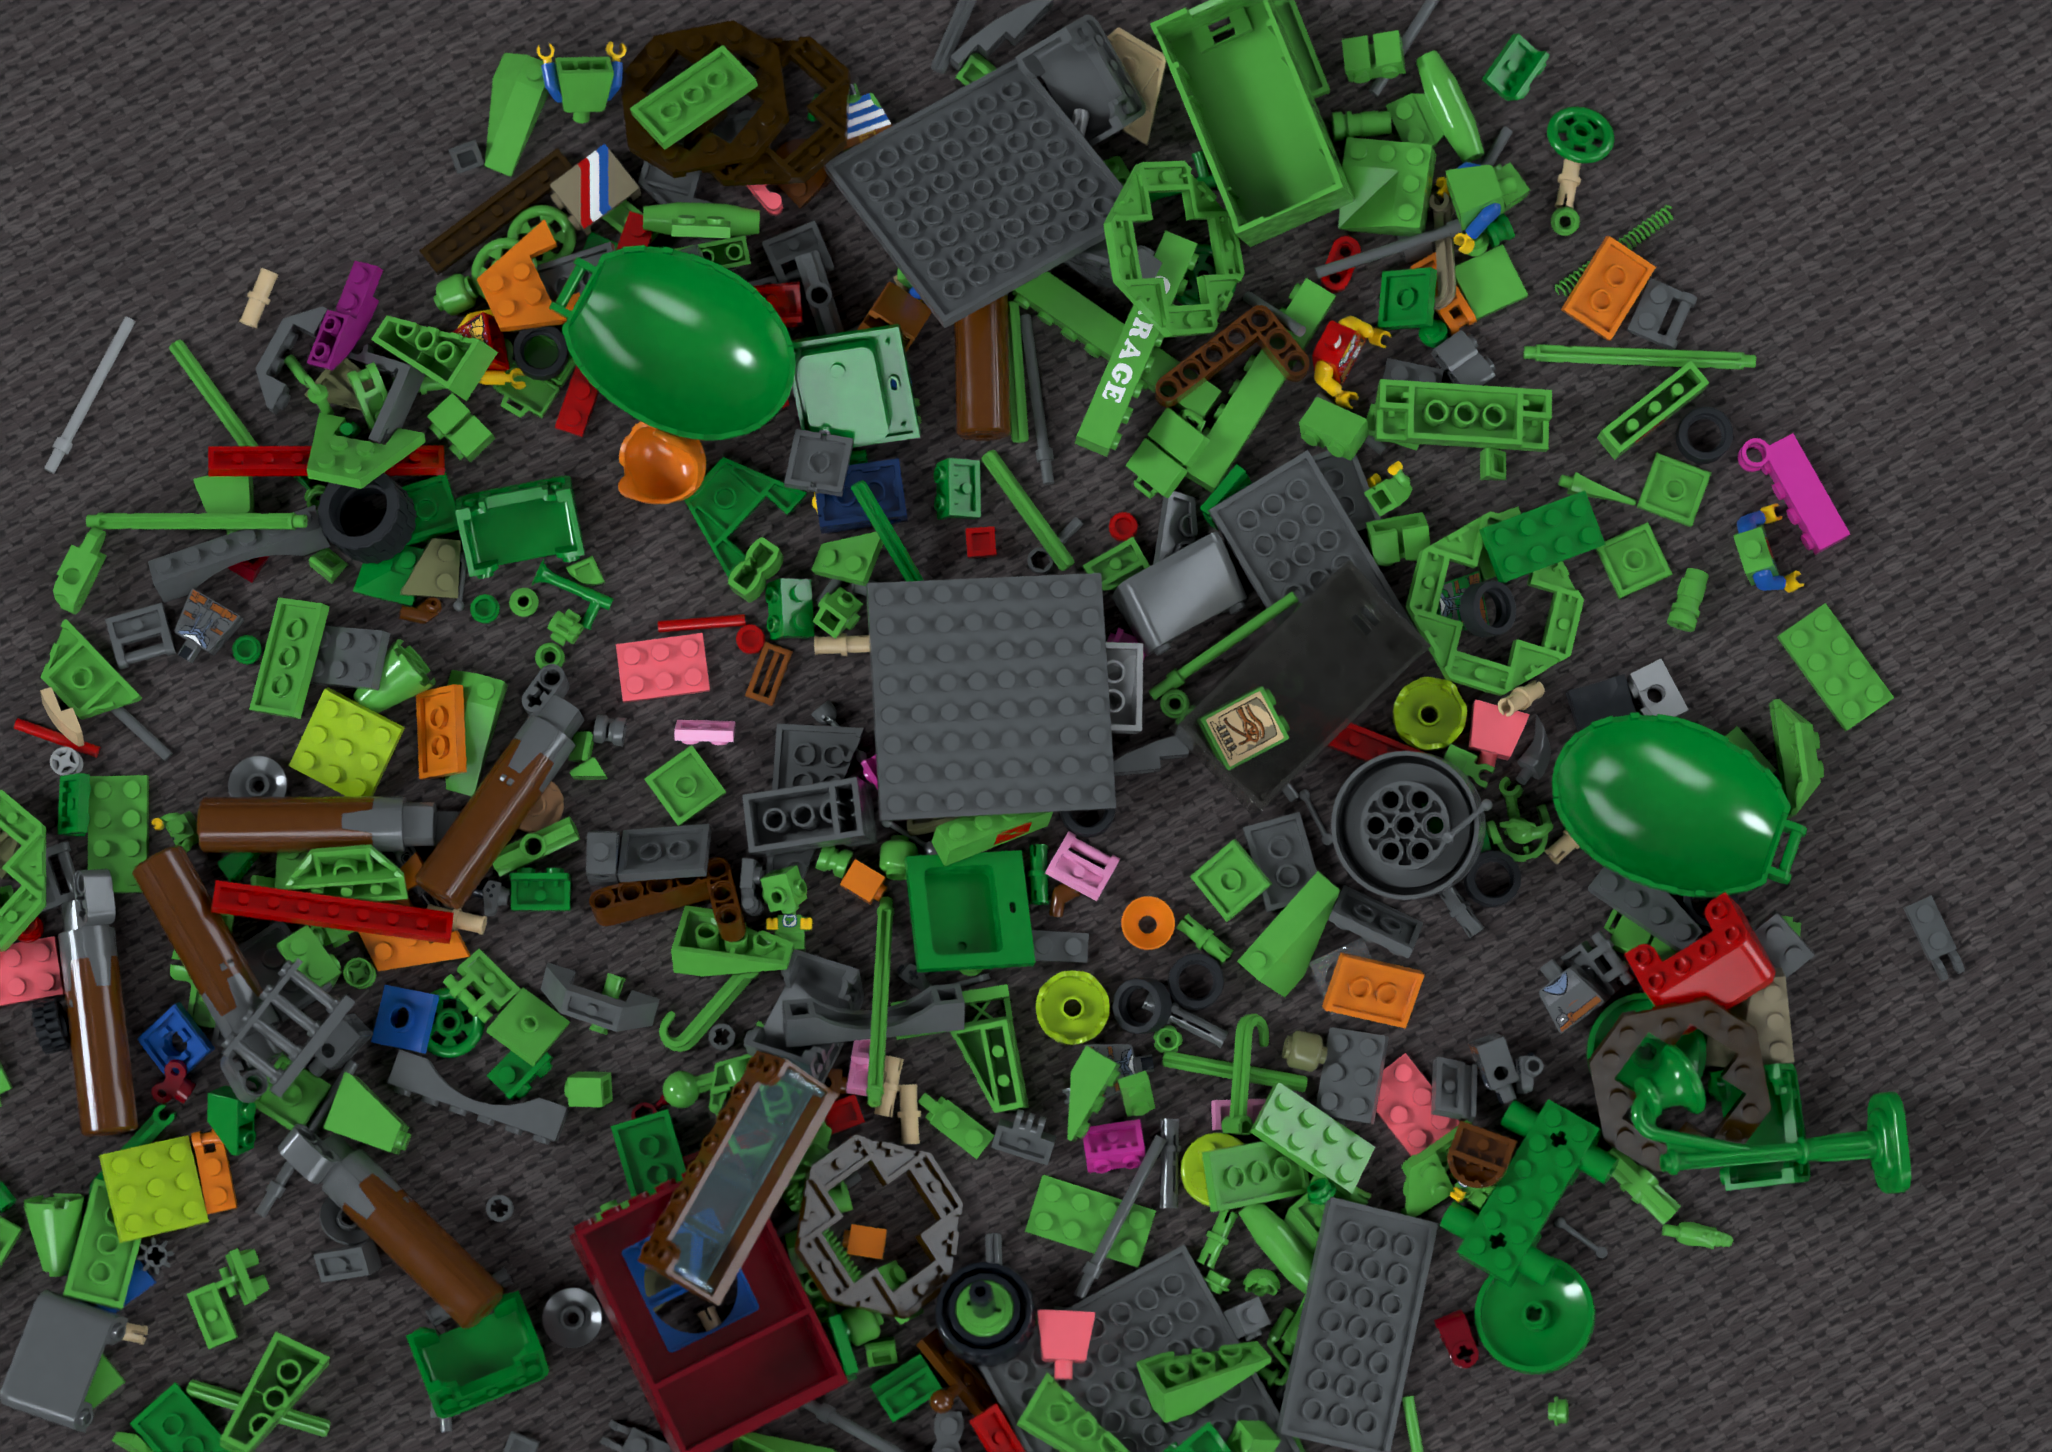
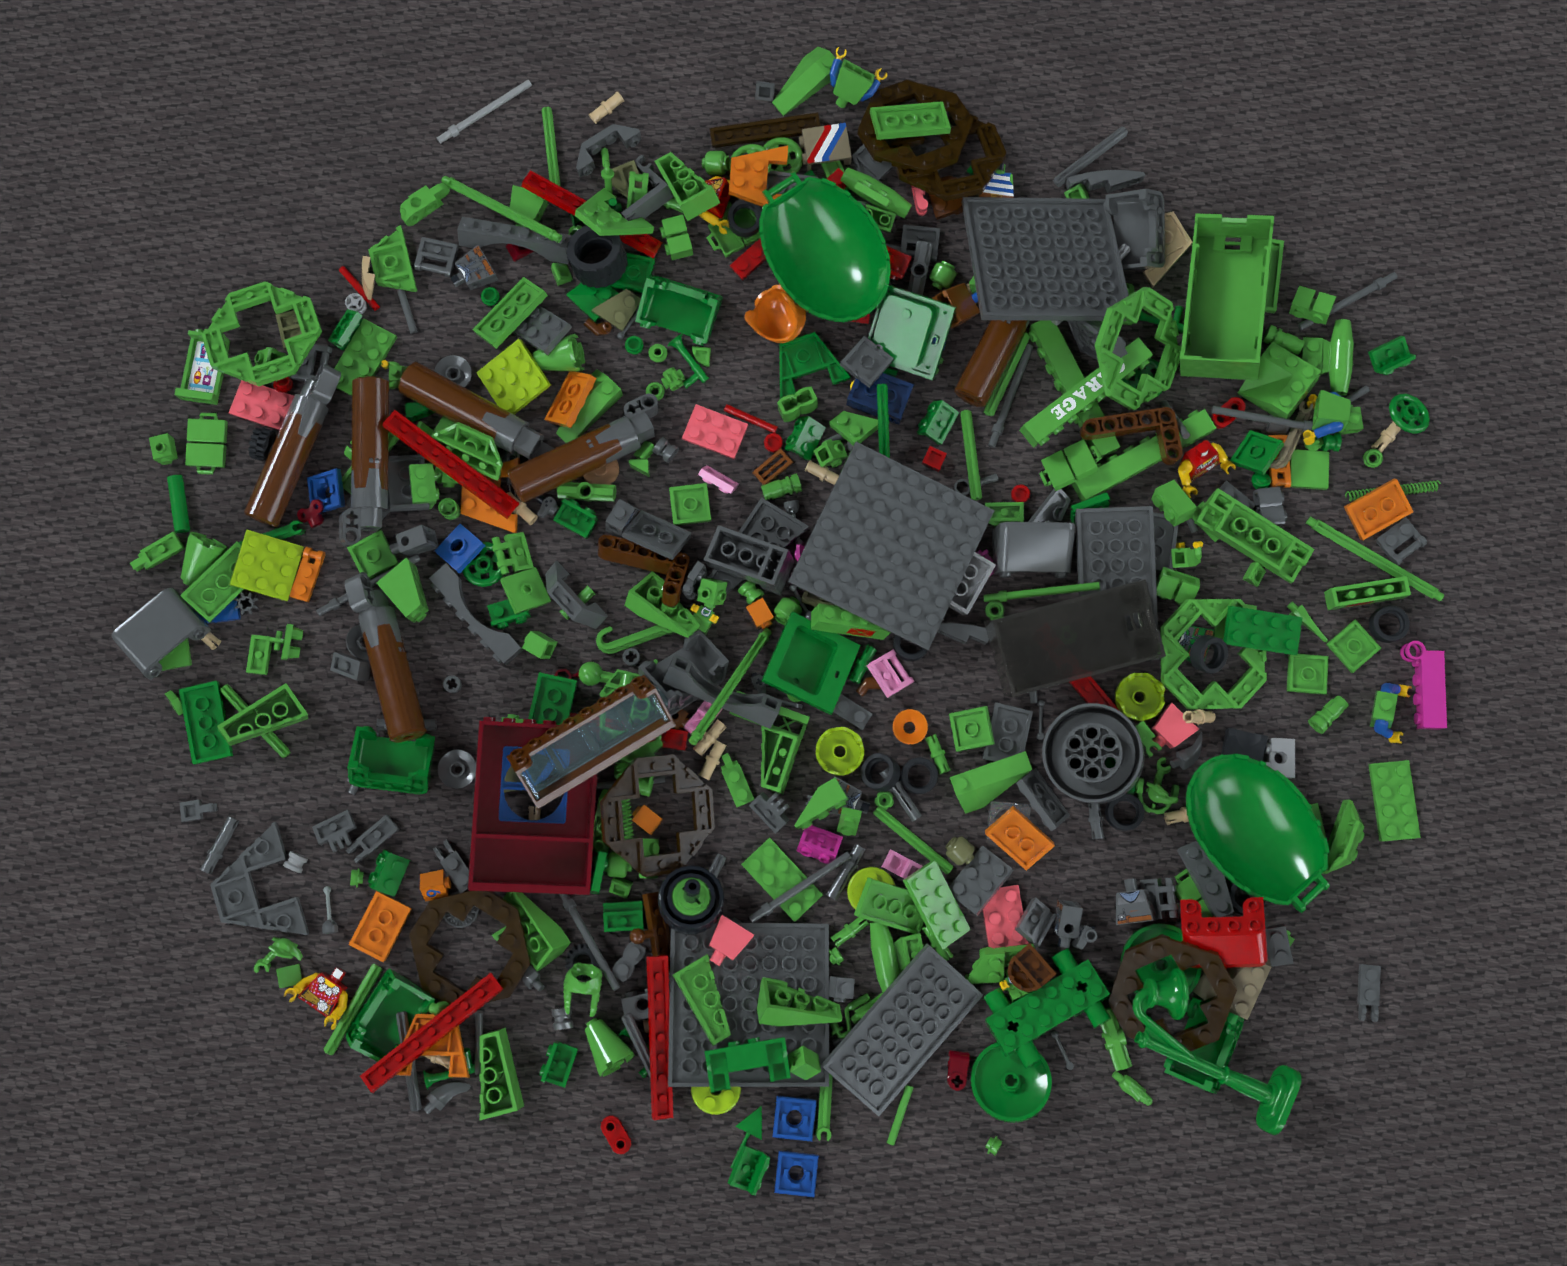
camera: 30 degrees right, 0 degrees up
(231, 1120) = (331, 551): green slope -> none
(298, 1054) = (402, 525): dark grey fence -> none
(346, 324) = (646, 146): magenta slope -> none
(796, 695) = (781, 487): none -> bright green axle
(854, 283) = (942, 275): none -> bright green head
(1238, 1122) = (899, 870): bright green piece -> none
(1244, 727) = (1028, 644): brick -> none
(1262, 1282) = (861, 971): bright green plate -> none
(1320, 1191) = (924, 938): green plate -> none
(1448, 837) = (1148, 767): dark grey hinge -> none

